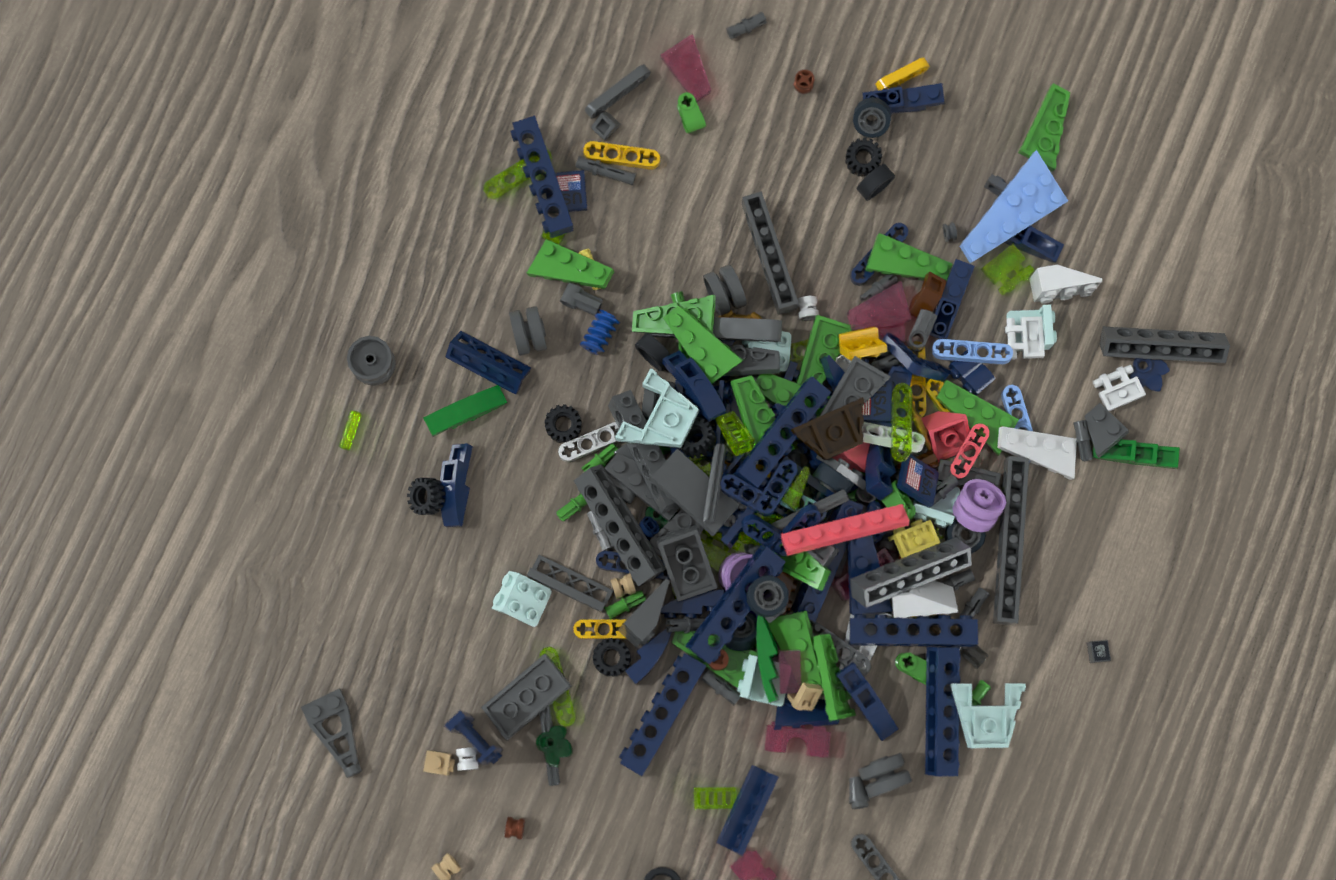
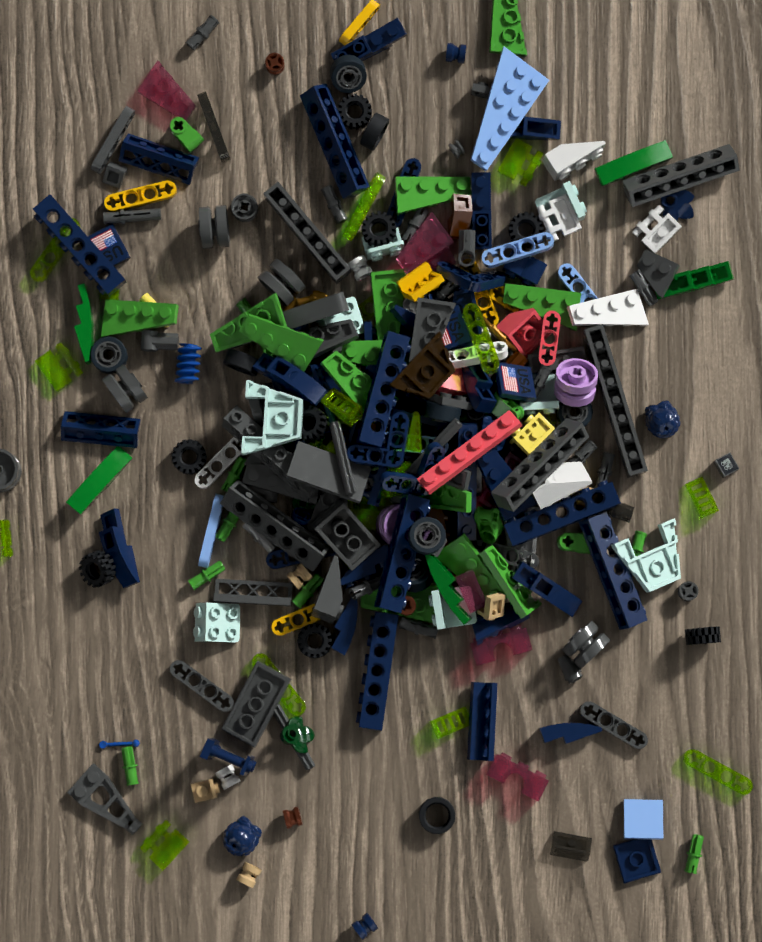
camera: 20 degrees left, 5 degrees up
(358, 674) = (103, 744): none -> blue hinge
(374, 706) = (129, 766): none -> bright green axle
(377, 807) = (168, 849): none -> clear neon green plate
(458, 826) = (243, 835): none -> dark blue hair
(467, 289) = (53, 369): none -> clear neon green plate
(479, 656) = (199, 689): none -> dark grey beam
(514, 260) = (85, 330): none -> green slope
(526, 282) = (101, 347): none -> wheel
(531, 547) = (206, 575): none -> bright green axle
(553, 506) = (211, 531): none -> light blue beam
(658, 122) = (162, 154): none -> dark blue fence
(677, 210) = (213, 227): none -> dark grey wheel
(712, 211) = (242, 215): none -> dark grey wheel
(720, 117) = (213, 127): none -> clear smoke beam
(807, 237) = (334, 204): none -> dark grey pin
(832, 176) = (334, 141): none -> dark blue brick
(832, 858) = (568, 731): none -> dark blue slope
(834, 611) = (489, 524): none -> bright green piece
(836, 250) = (364, 206): none -> clear neon green beam
(839, 294) = (376, 253): none -> light aqua bracket
(841, 266) = (375, 219): none -> black tyre
(985, 140) = (455, 52): none -> dark blue wheel
(987, 324) = (524, 218): none -> black tyre
(1009, 816) = (702, 635): none -> black tyre
(1014, 762) = (690, 588): none -> dark grey wheel
(1050, 575) = (662, 416): none -> dark blue hair
(1069, 674) = (702, 514): none -> clear neon green slope
(1120, 314) = (633, 163): none -> green slope

